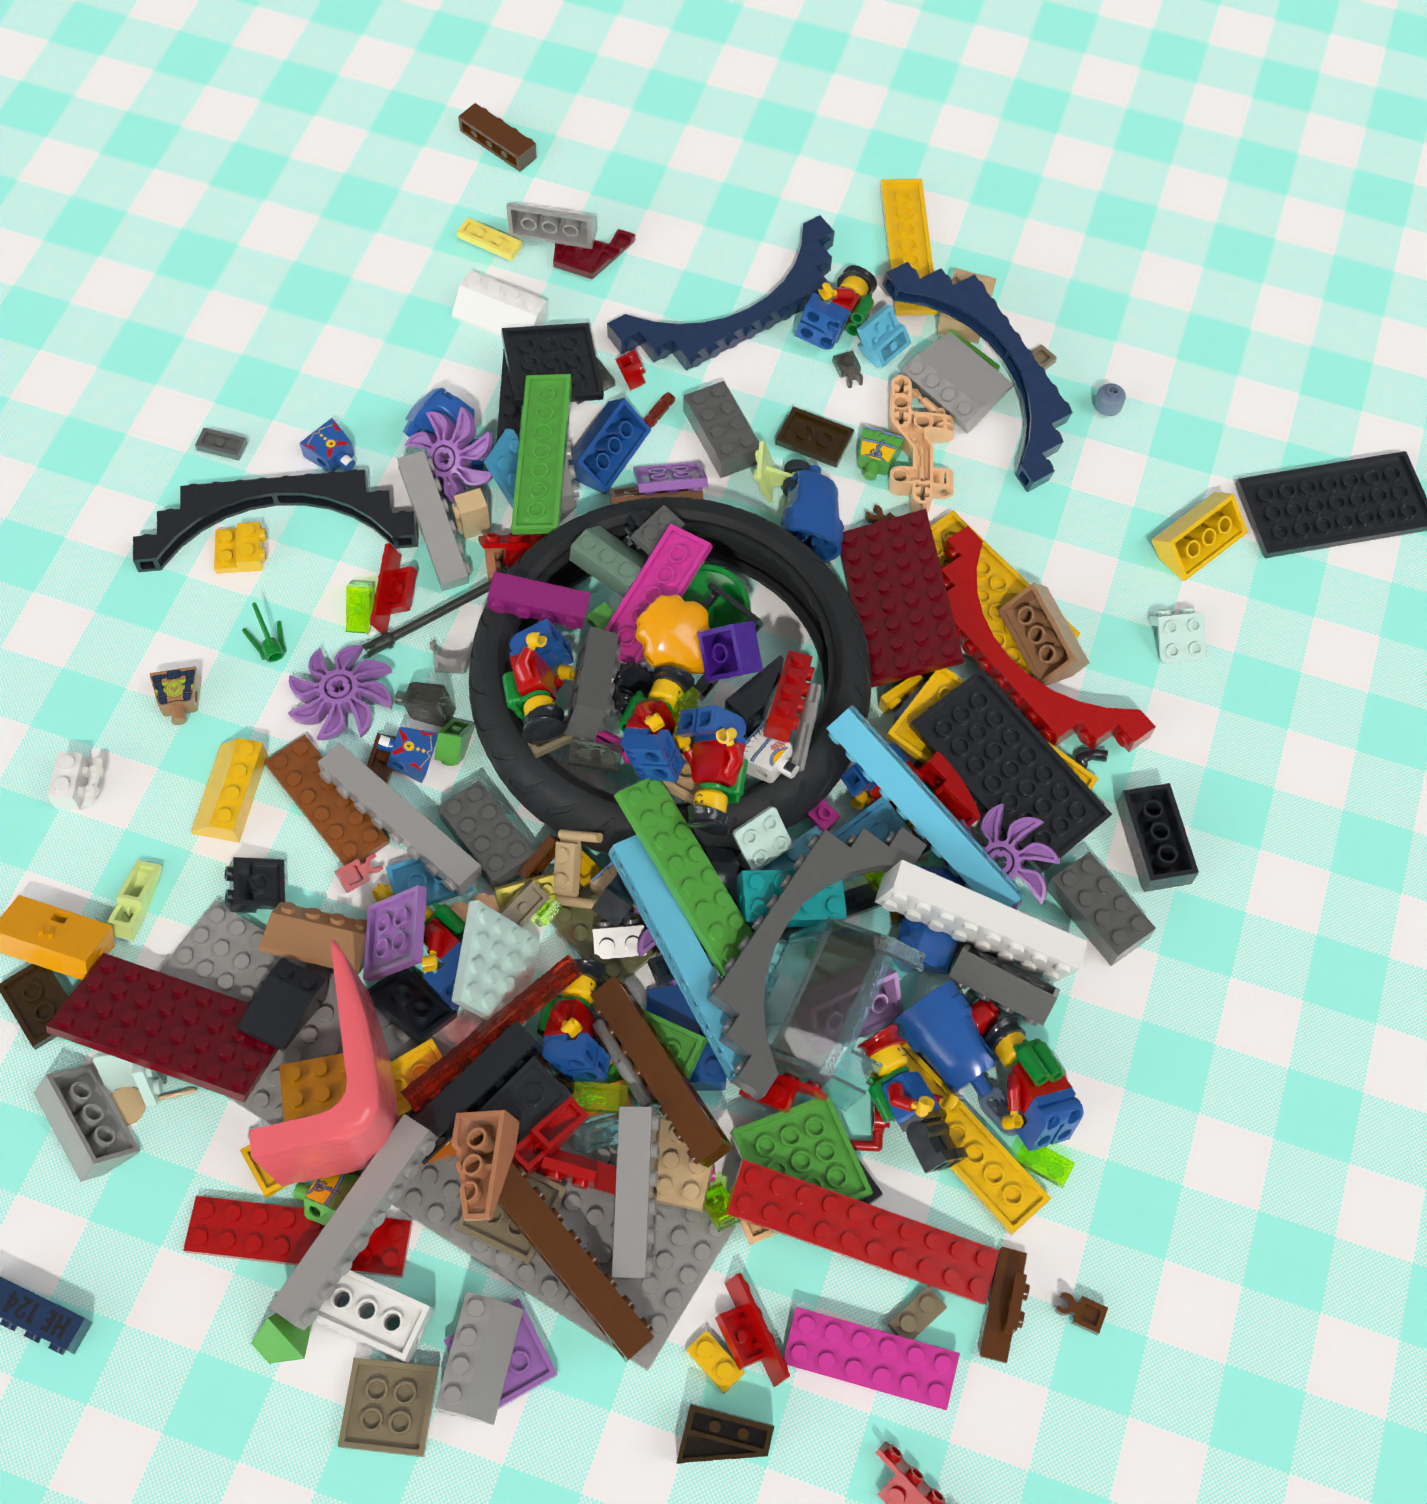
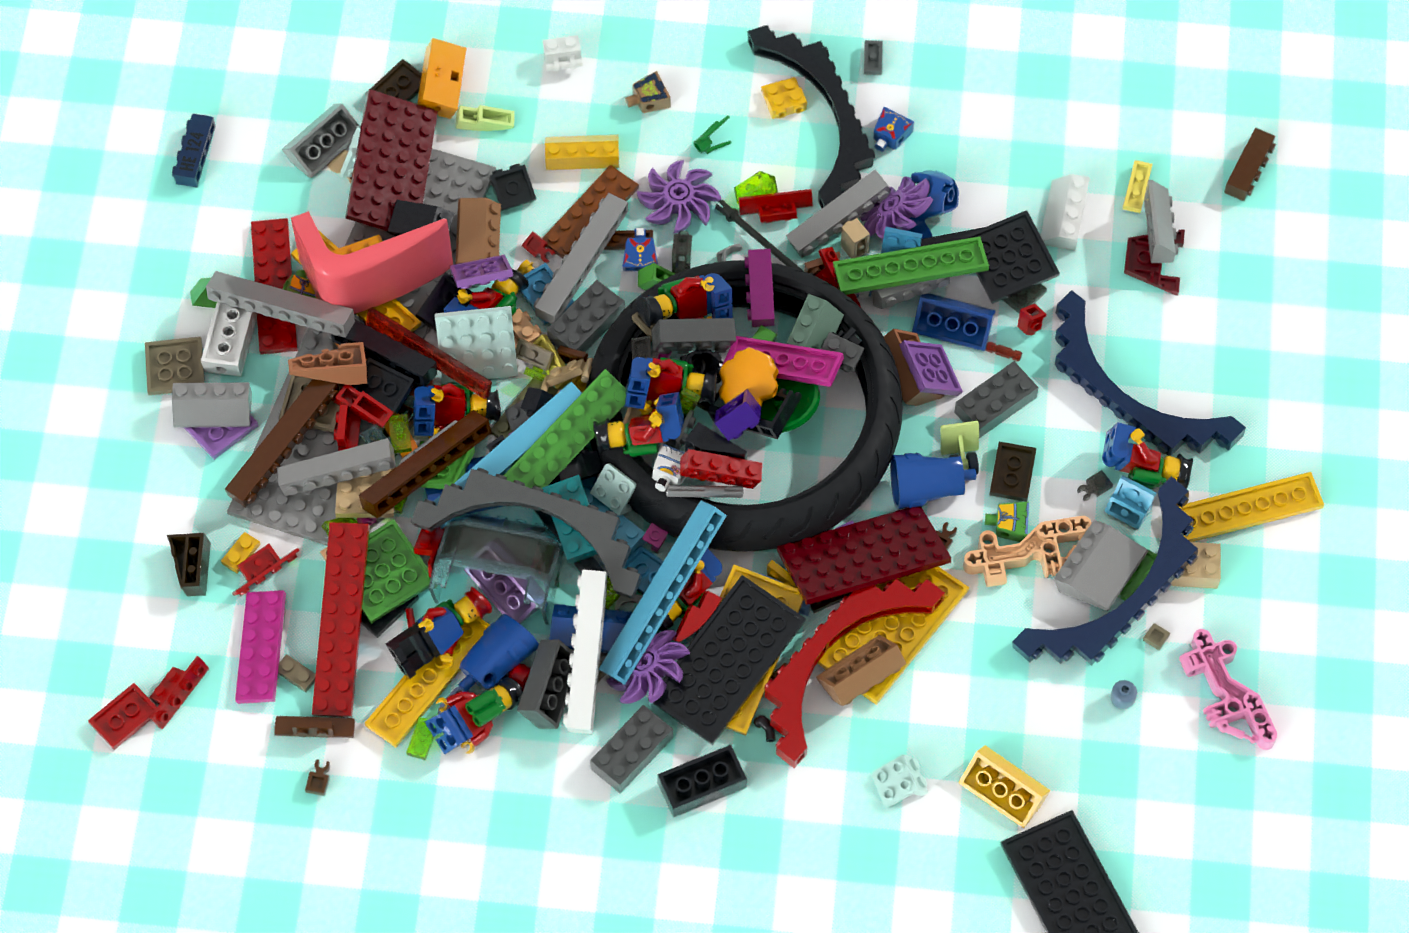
camera: 80 degrees right, 0 degrees up
(1131, 306) = (1211, 661): none -> bright pink beam

